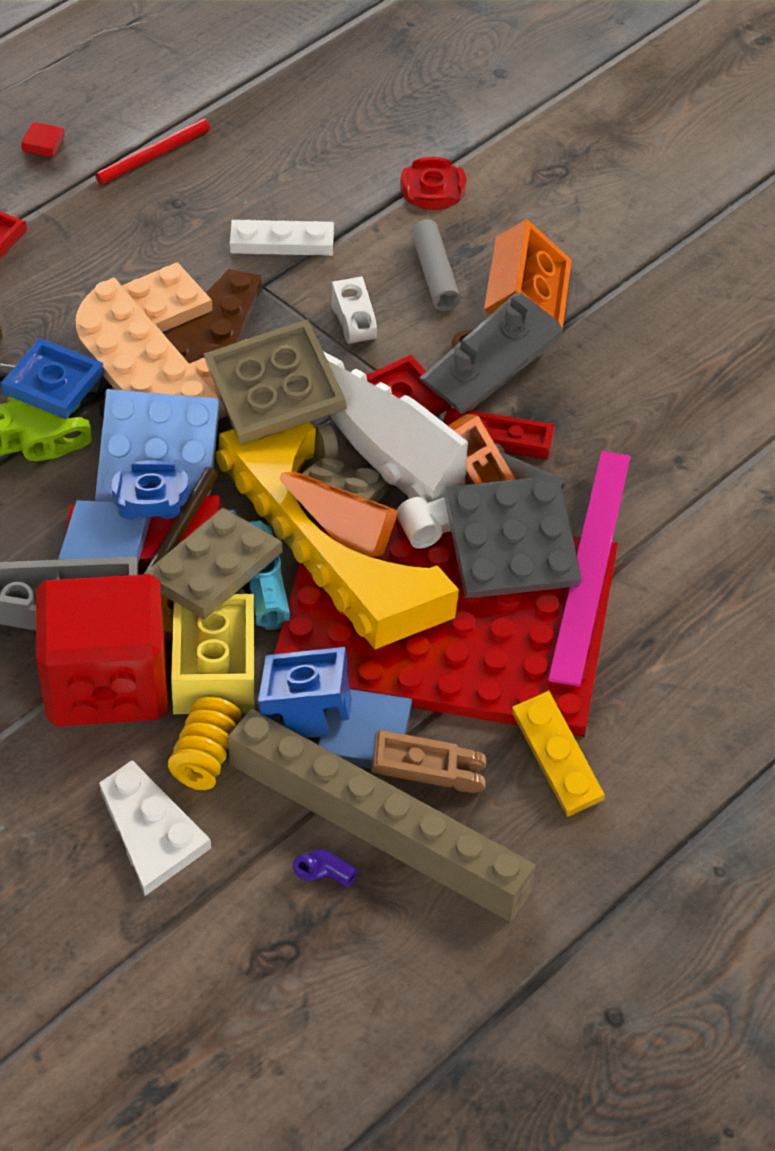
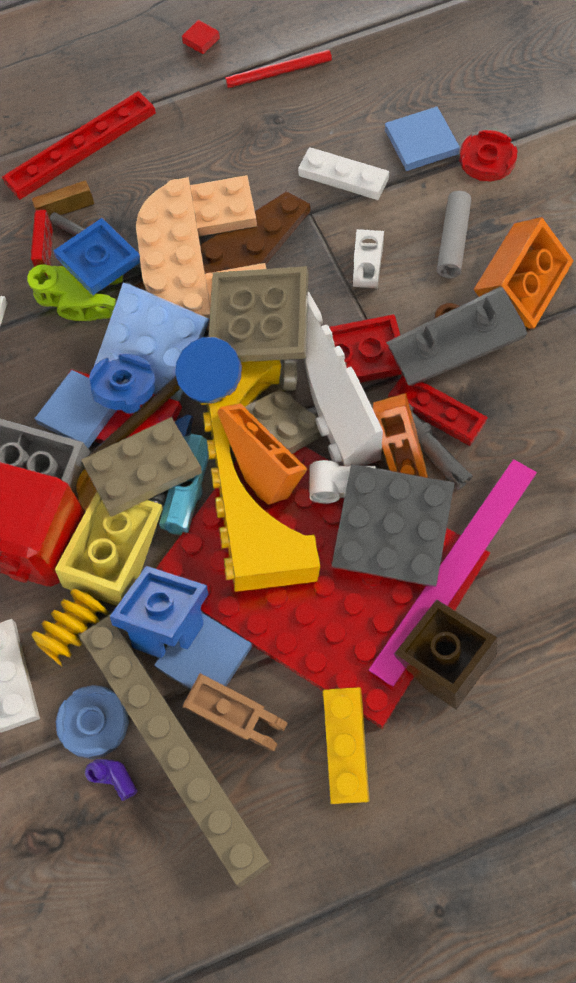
camera: 30 degrees right, 15 degrees up
(247, 445) = (208, 370): none -> blue tile
(273, 828) = (92, 722): none -> medium blue tile
(352, 183) = (422, 138): none -> medium blue tile
(621, 638) = (447, 653): none -> dark brown slope

